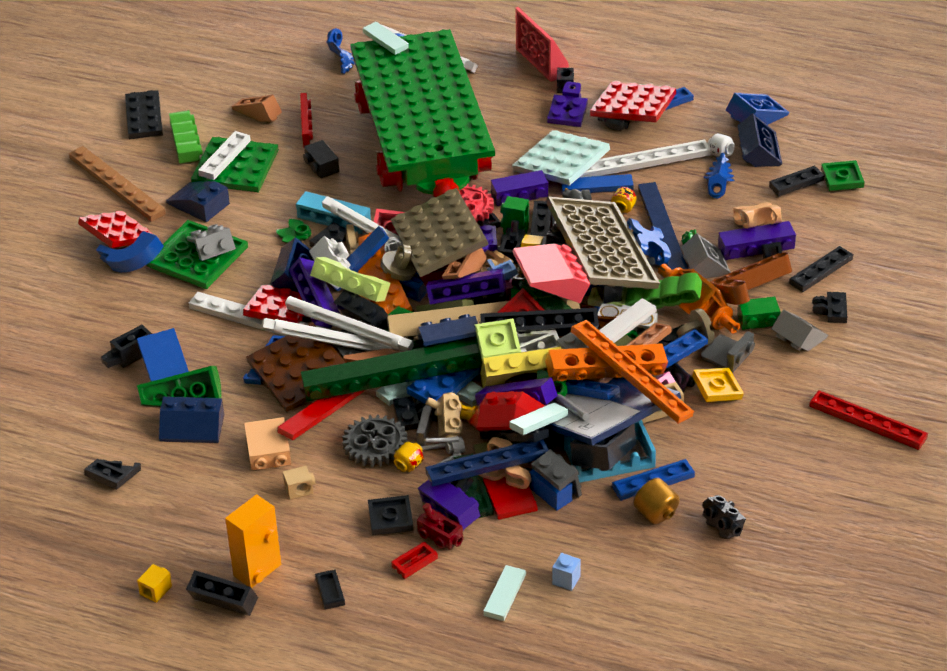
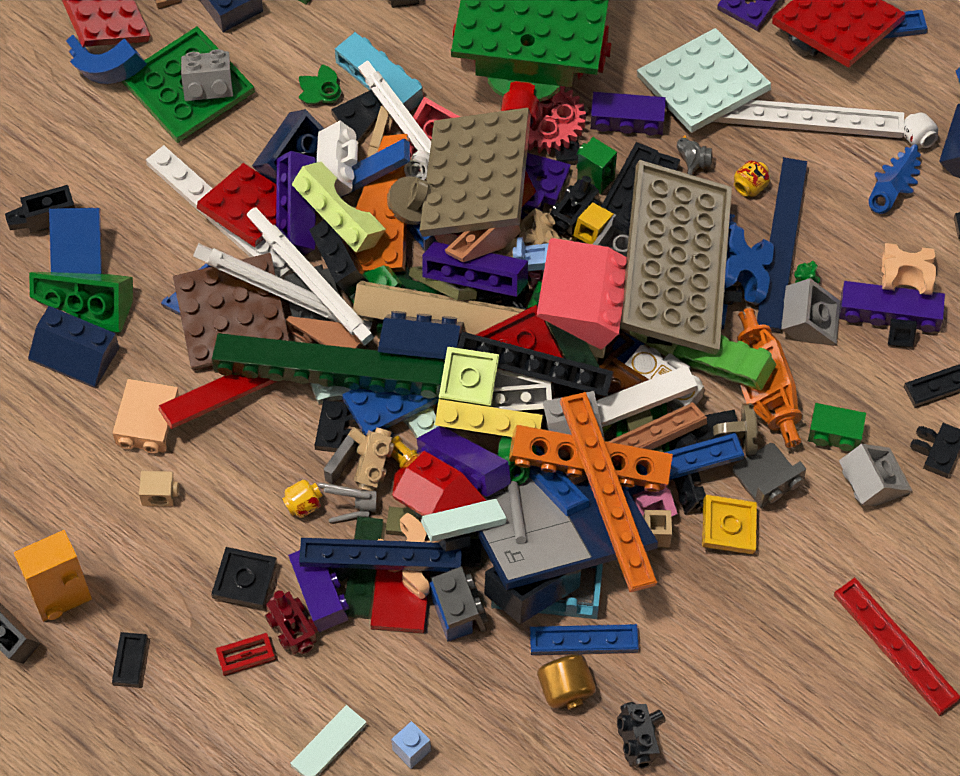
camera: 20 degrees right, 20 degrees up
(373, 440) = (290, 442): dark grey gear -> none
(601, 183) = (737, 139): blue tile -> none
(736, 284) = (819, 370): dark orange beam -> none

